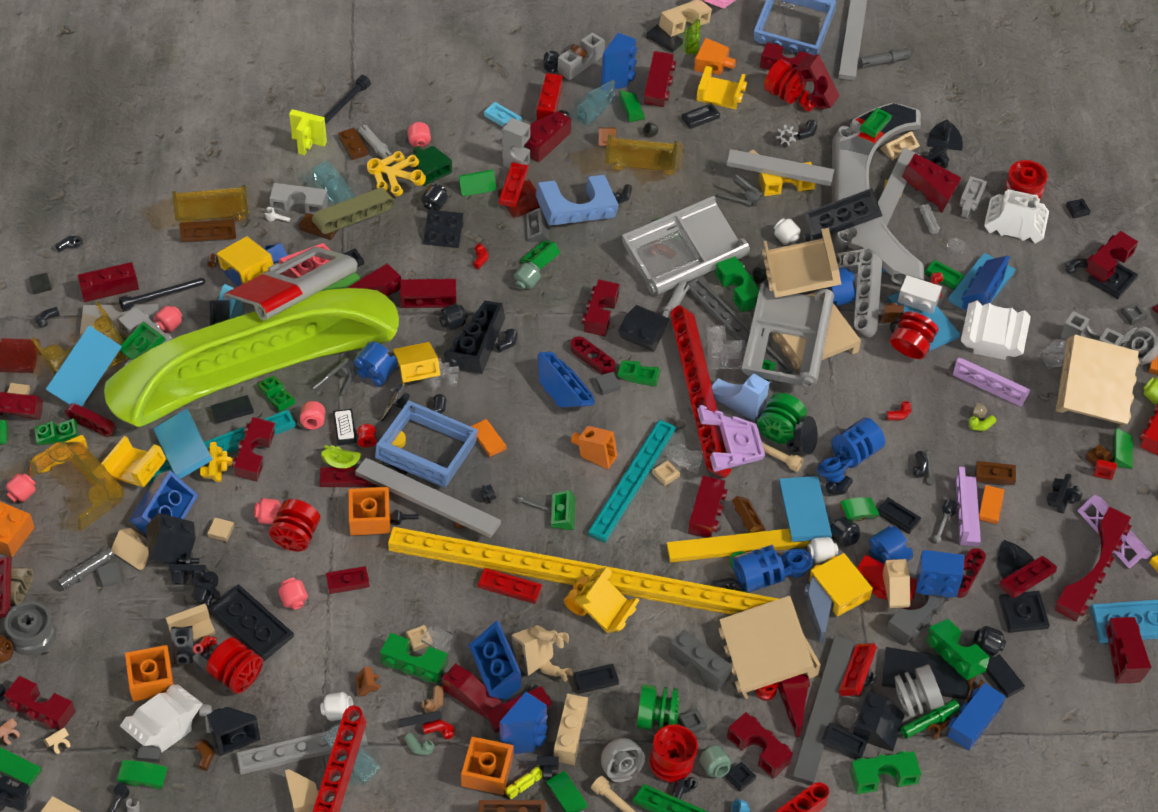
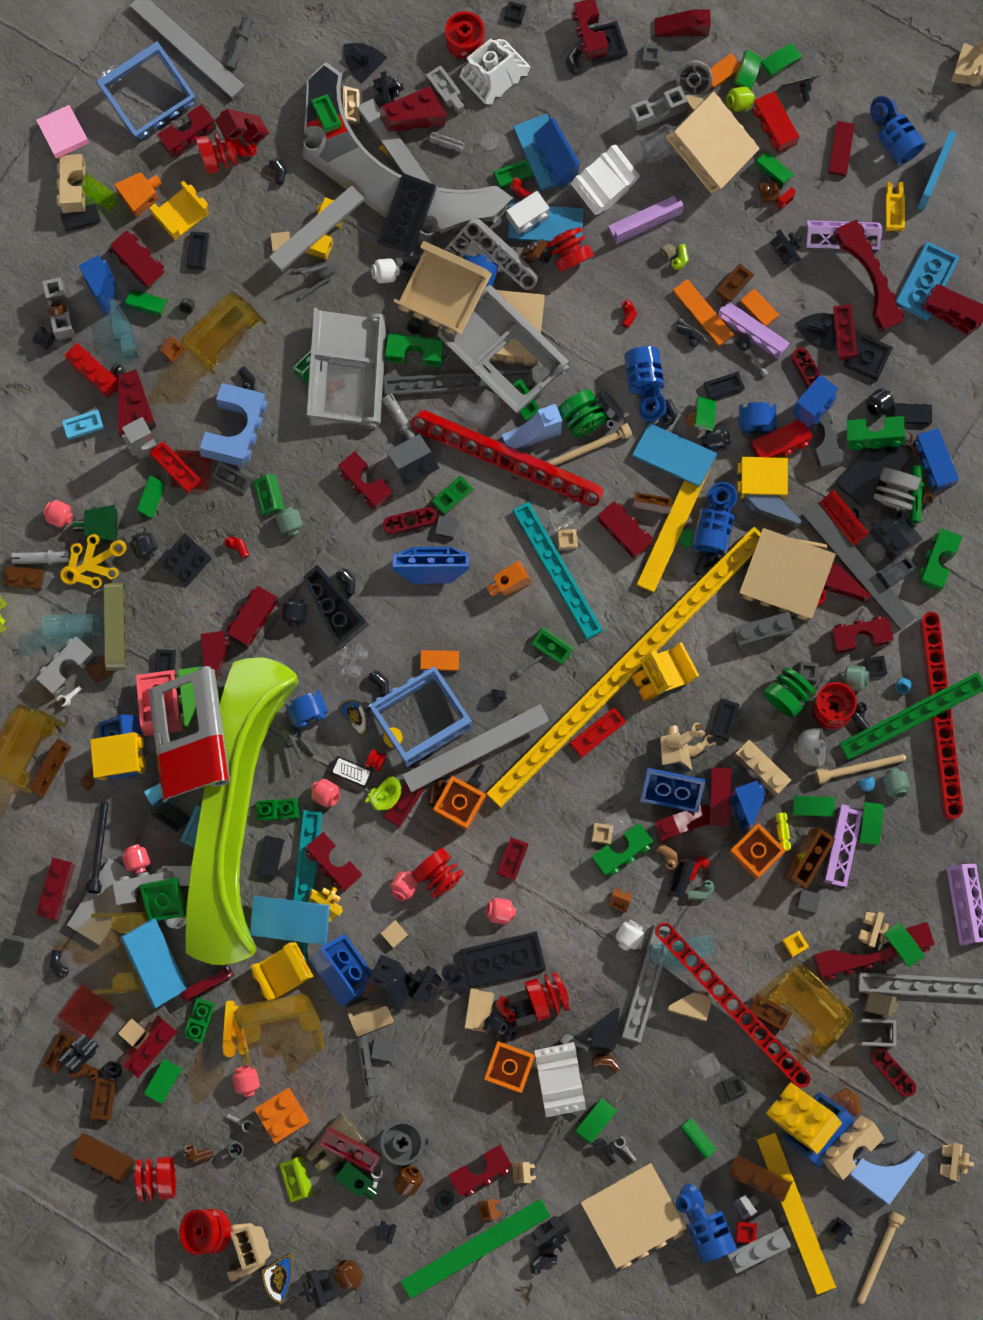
camera: 55 degrees left, 25 degrees up
(417, 362) = (329, 673): yellow panel -> none
(547, 764) = (781, 805): black tile -> none
(740, 440) = (584, 462): lavender wing -> none
(783, 138) = (275, 193): light grey gear -> none
(822, 549) = (723, 469): white head -> none
(897, 583) = (798, 437): tan slope -> none
(949, 465) = (703, 313): none -> orange tile

